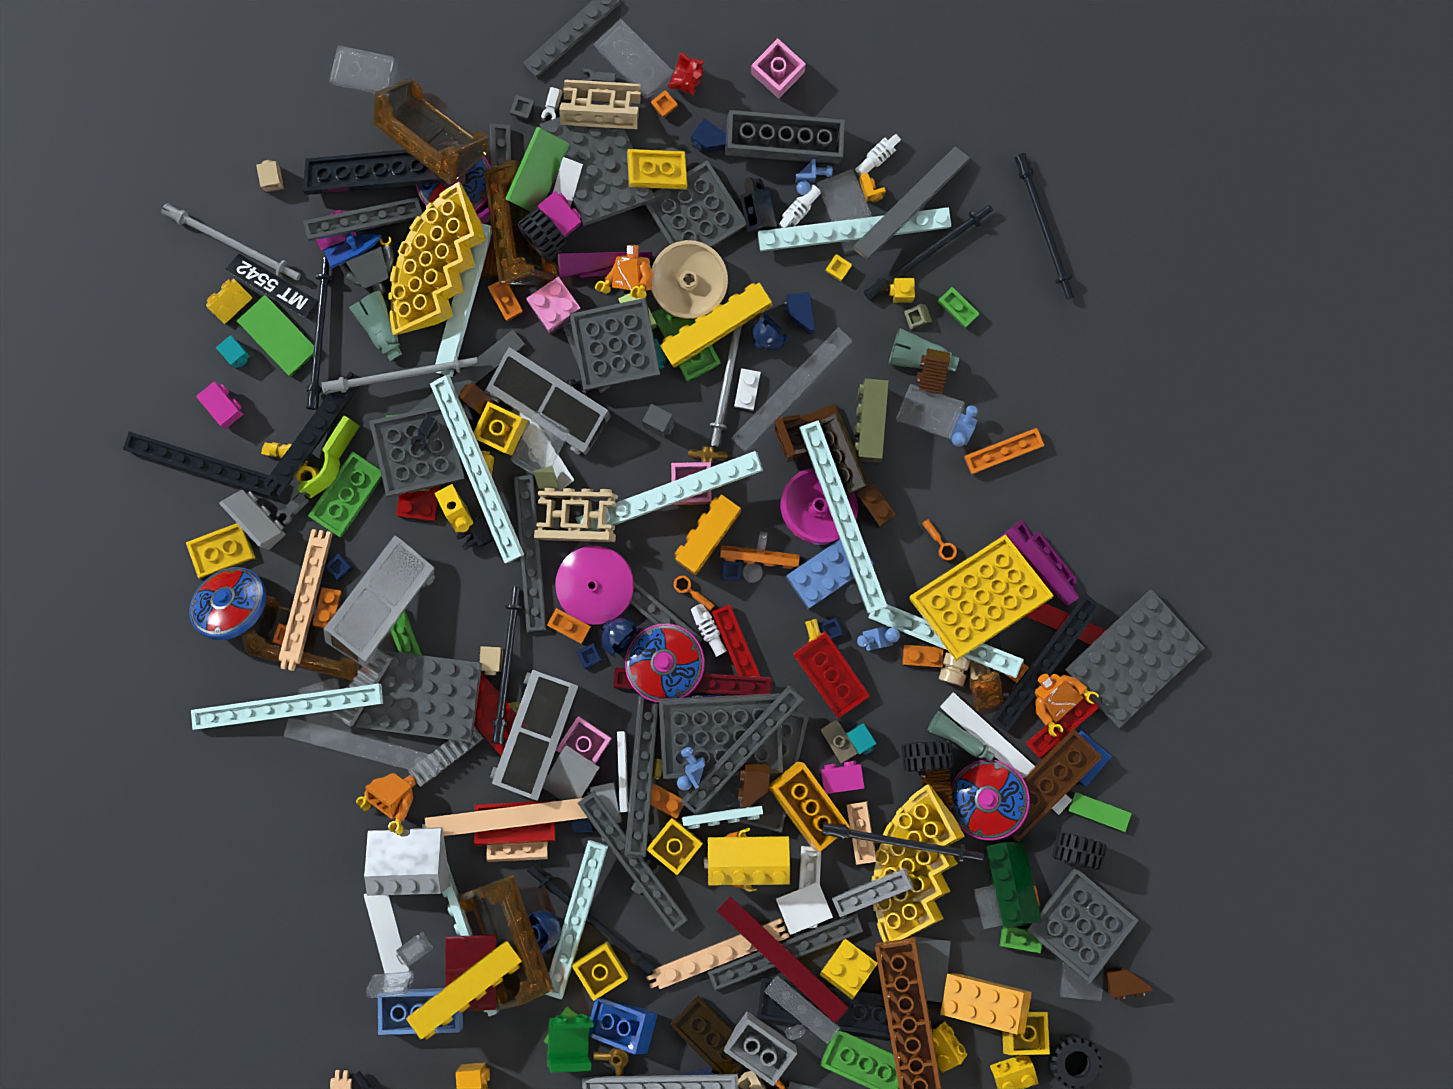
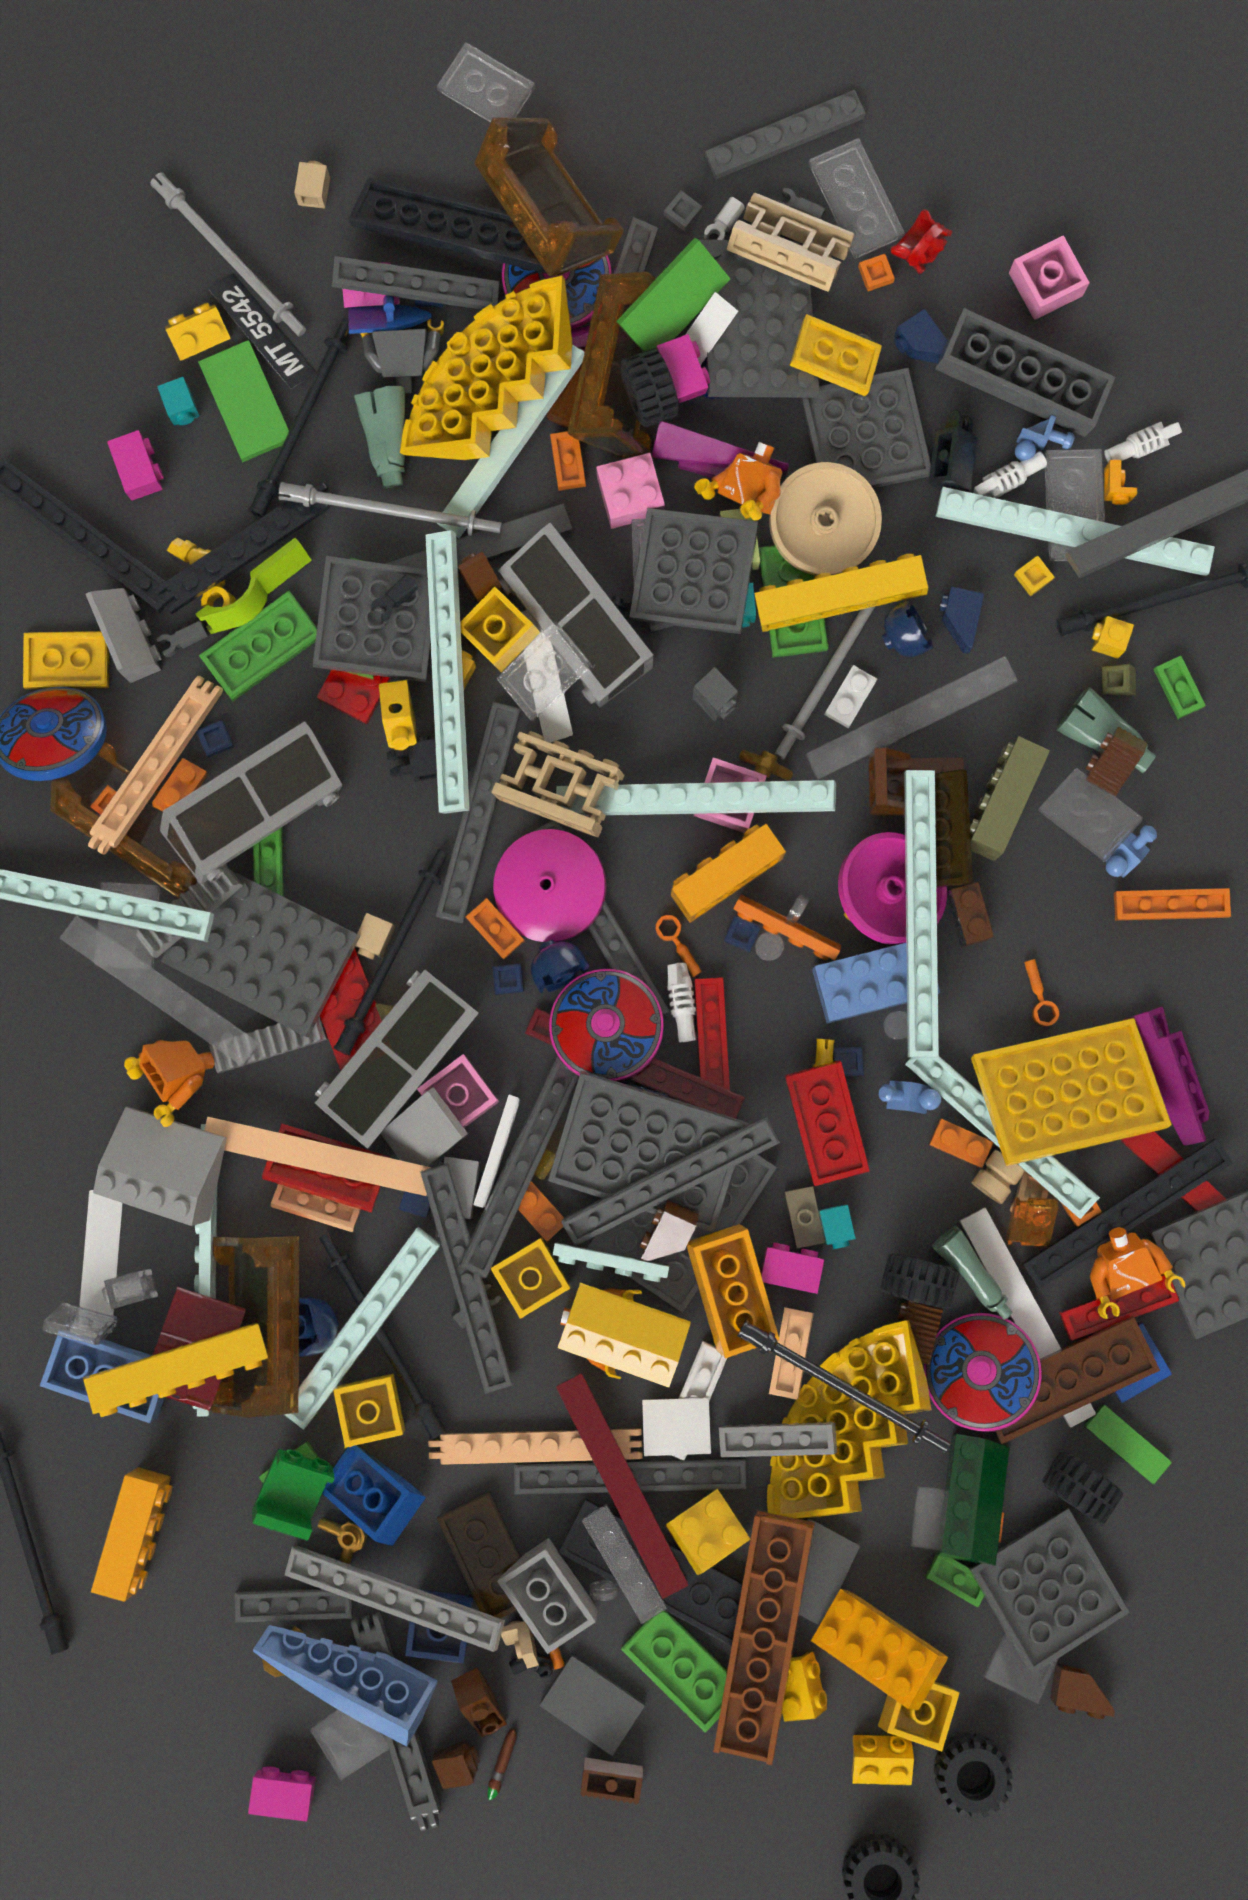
camera: 20 degrees right, 0 degrees up
(546, 478) = (536, 718): olive slope -> none
(693, 770) = (593, 1184): medium blue piece -> none

